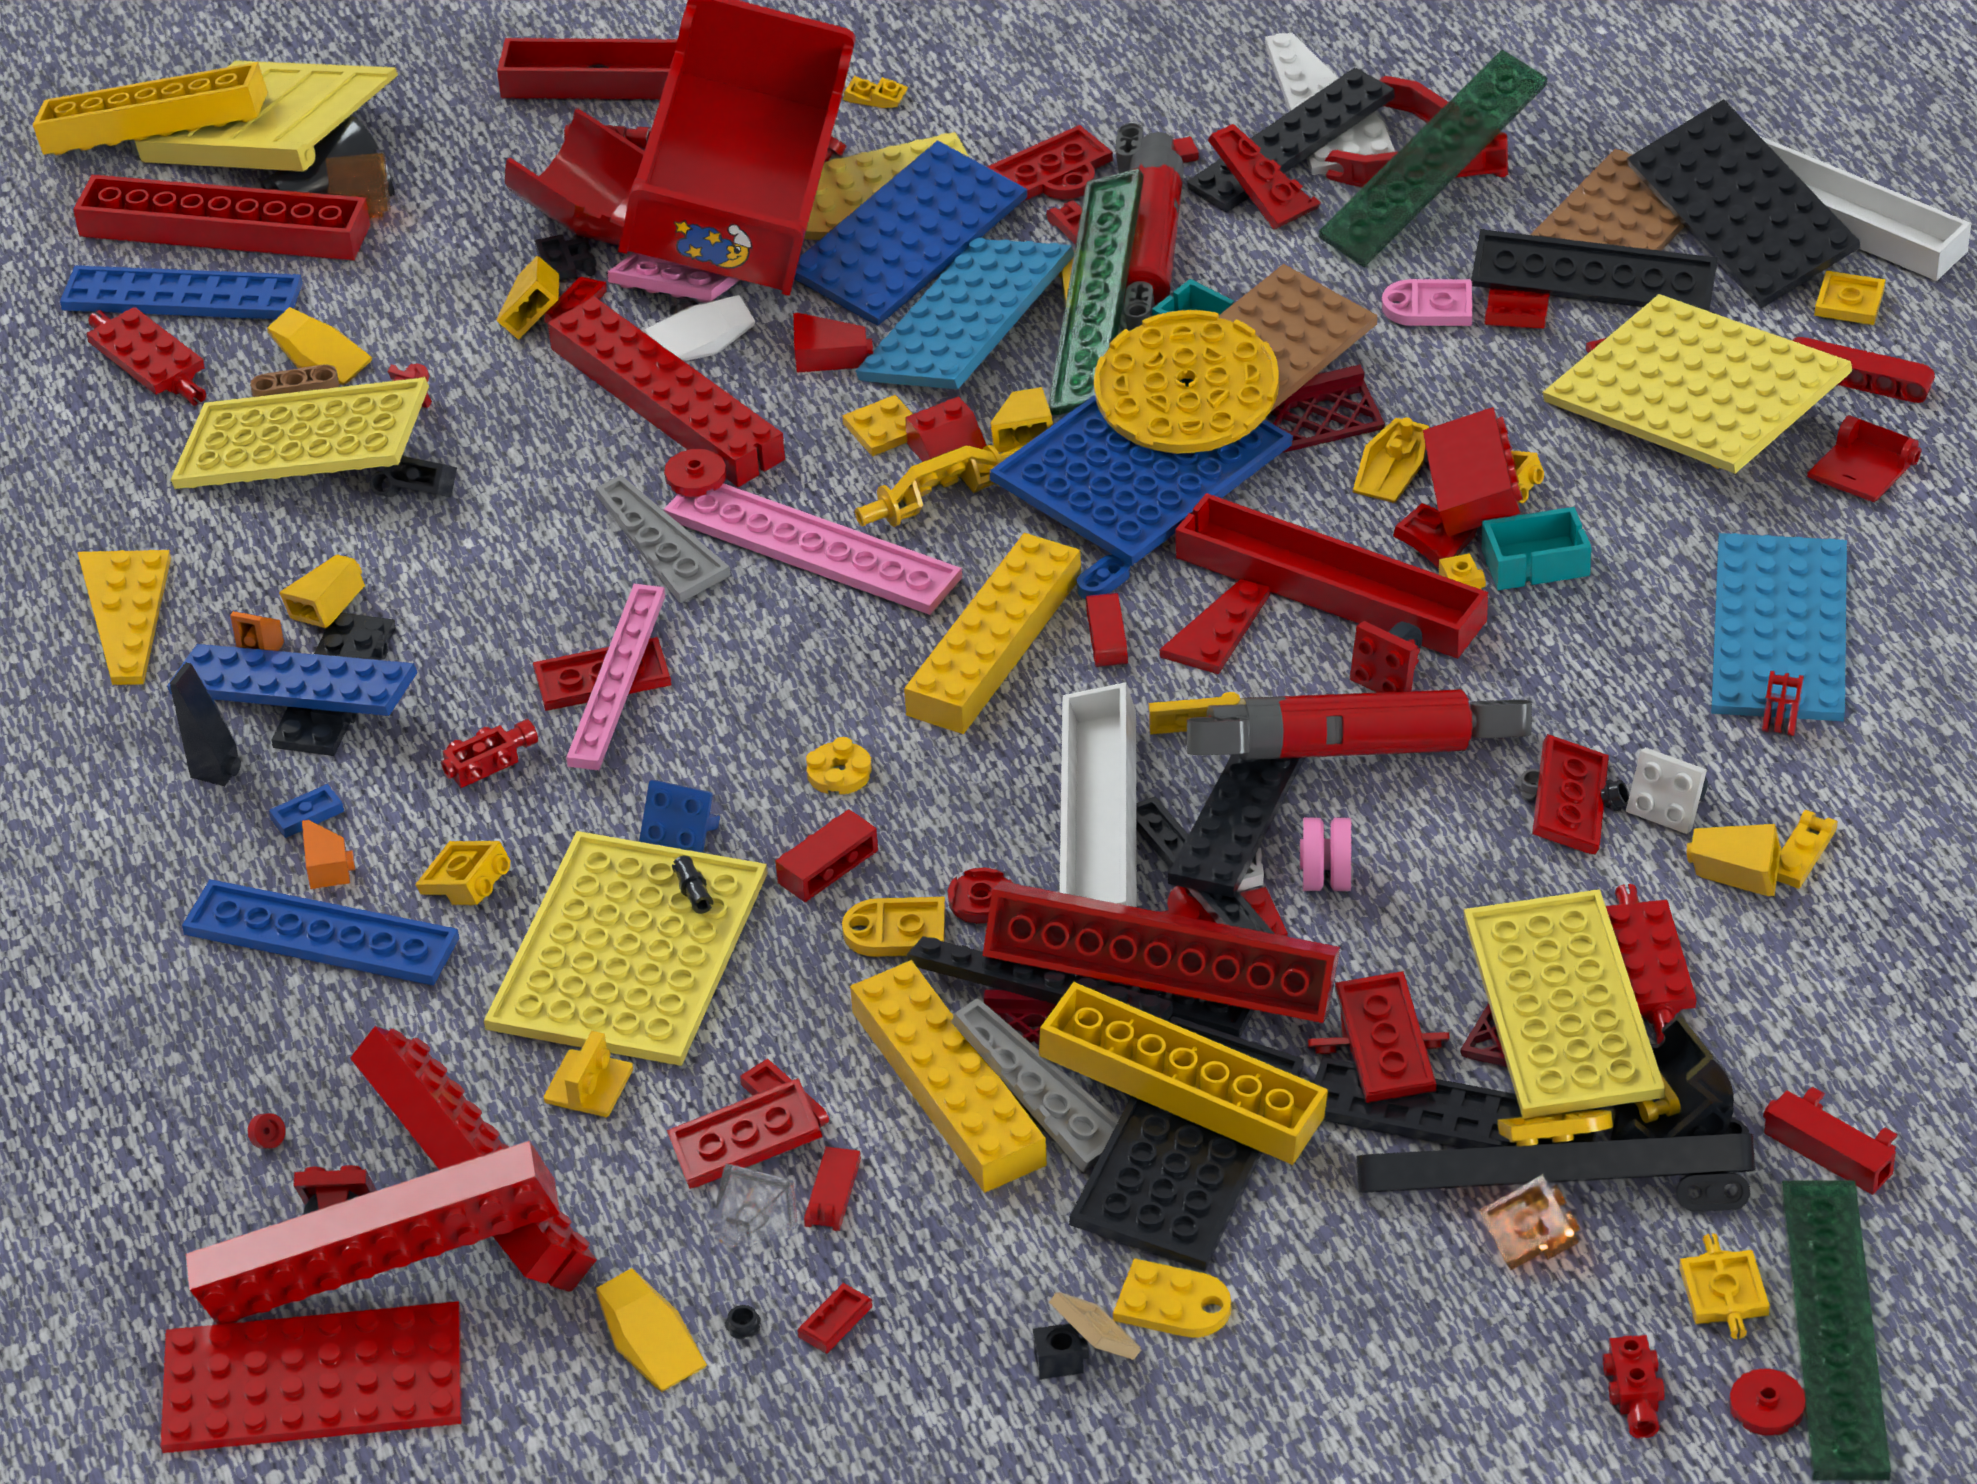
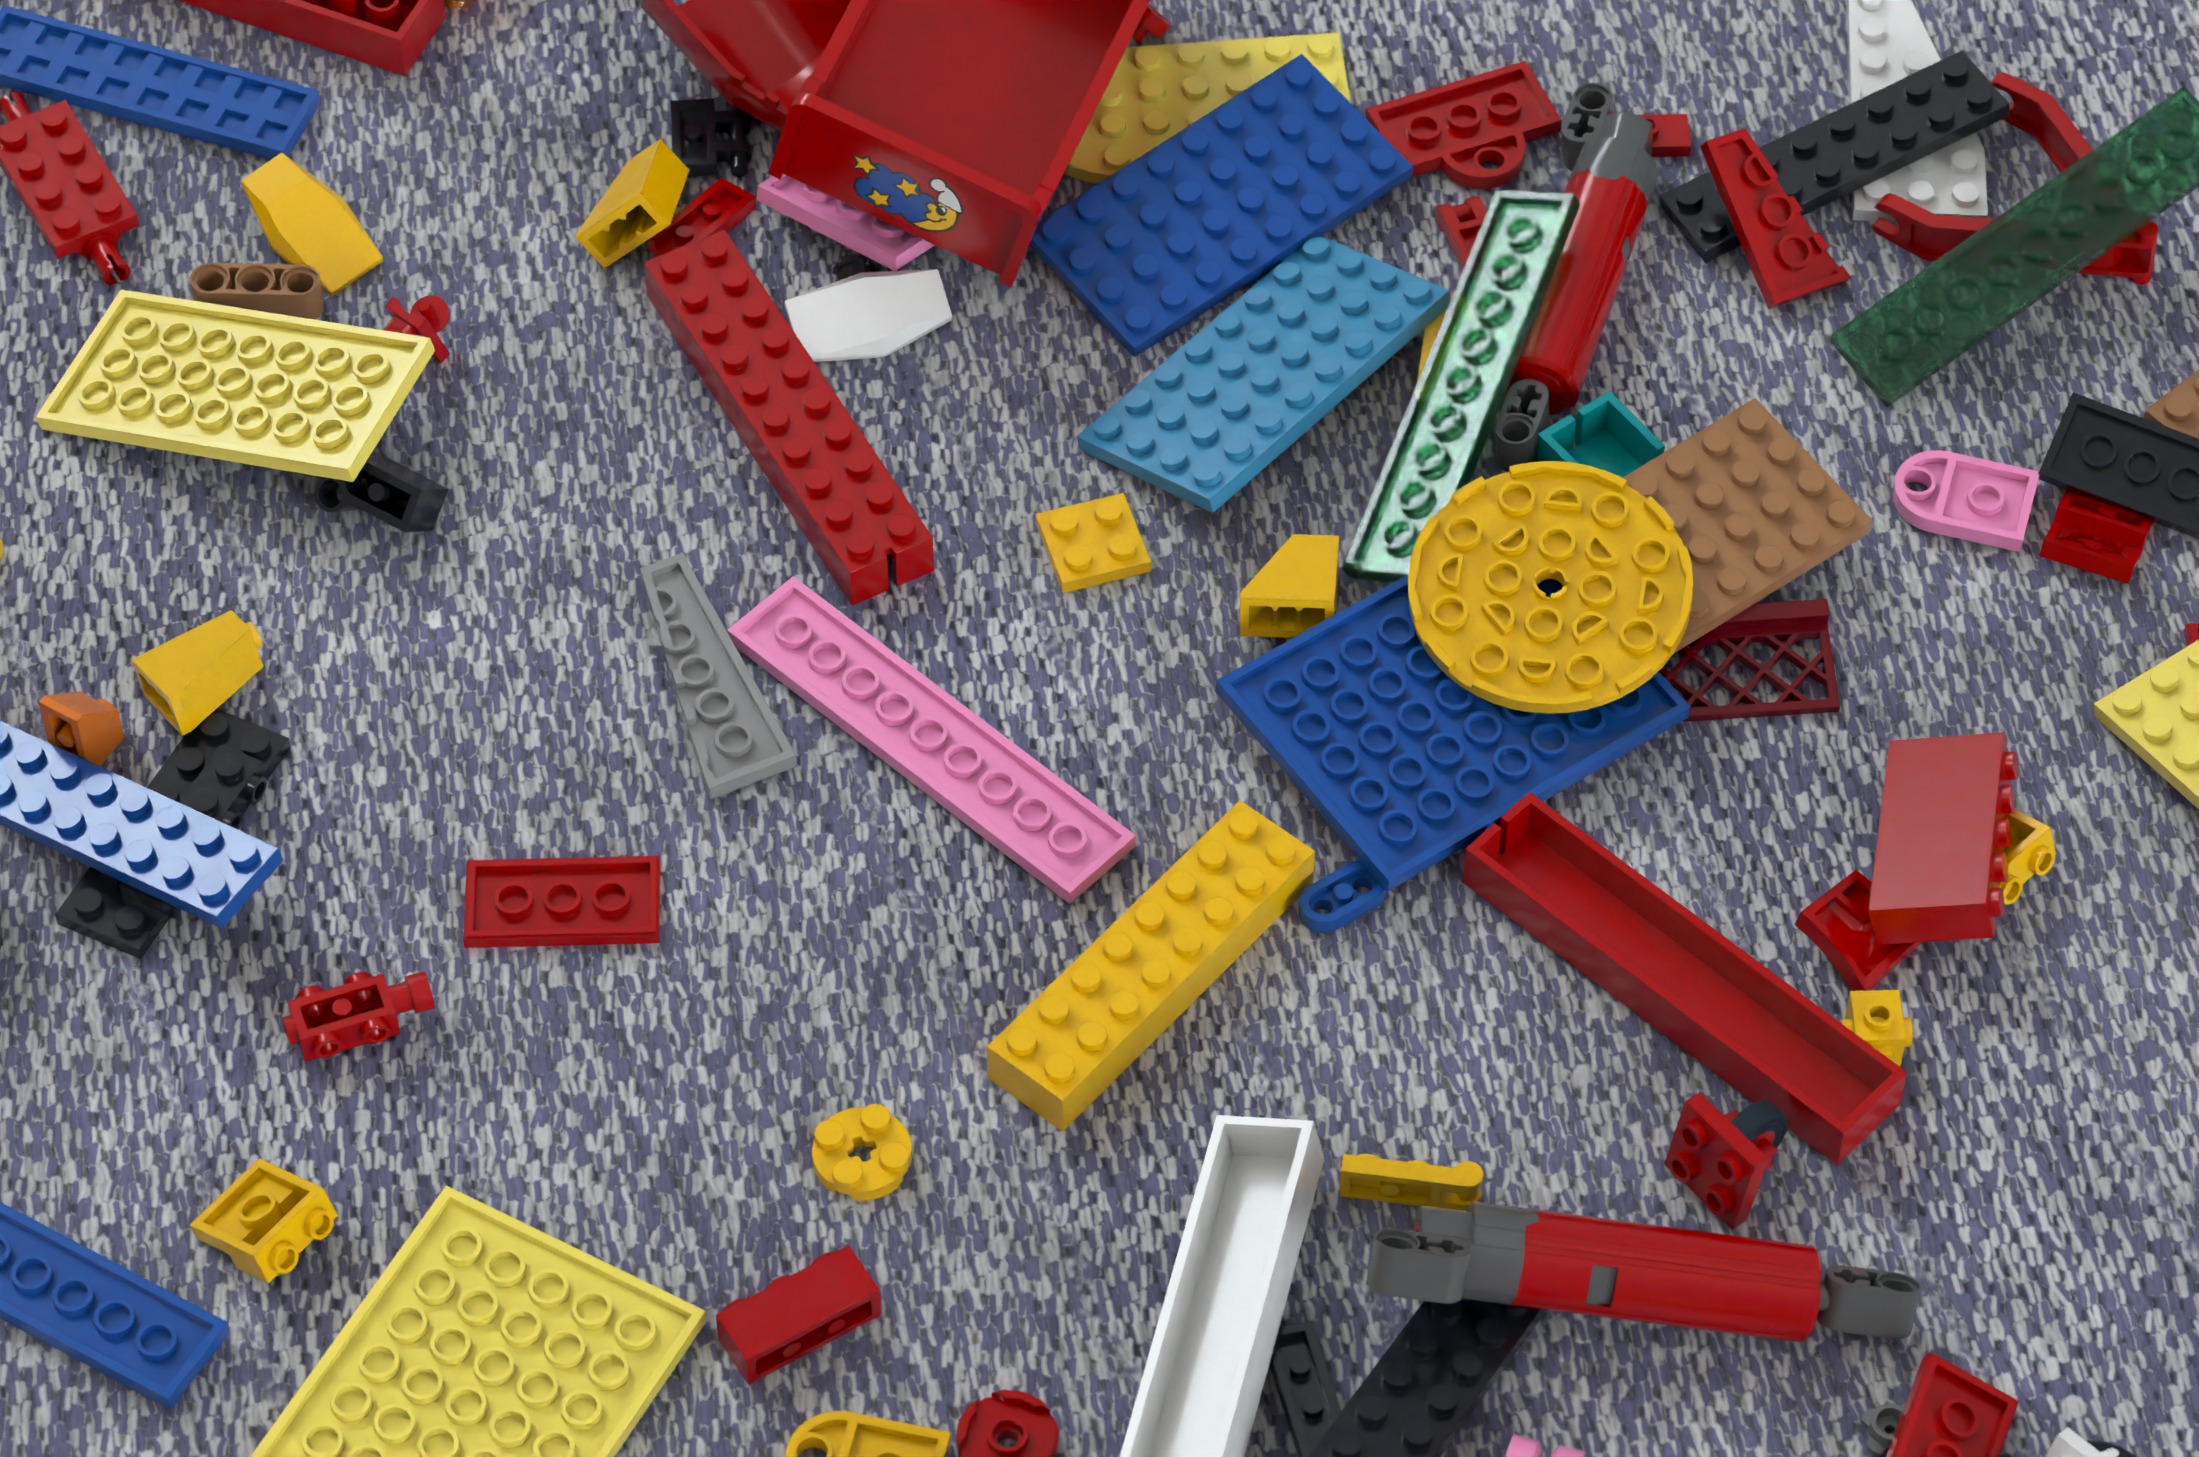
camera: 10 degrees right, 10 degrees up
(313, 806) = (70, 1054): blue plate -> none
(326, 856) = (73, 1146): orange slope -> none
(615, 677) = (575, 922): bright pink plate -> none
(677, 816) = (596, 1201): blue bracket -> none
(692, 884) = (583, 1330): black pin -> none
(695, 472) = (789, 593): red plate -> none
(828, 344) = (1047, 381): red slope -> none
(943, 429) = (1177, 590): red slope -> none
(965, 462) = (1123, 663): yellow plate -> none
(1106, 630) = (1321, 995): red beam -> none
(1218, 630) = (1488, 1030): red wing -> none
(1391, 460) = (1832, 776): yellow piece -> none
(1536, 548) = (2005, 997): teal piece -> none

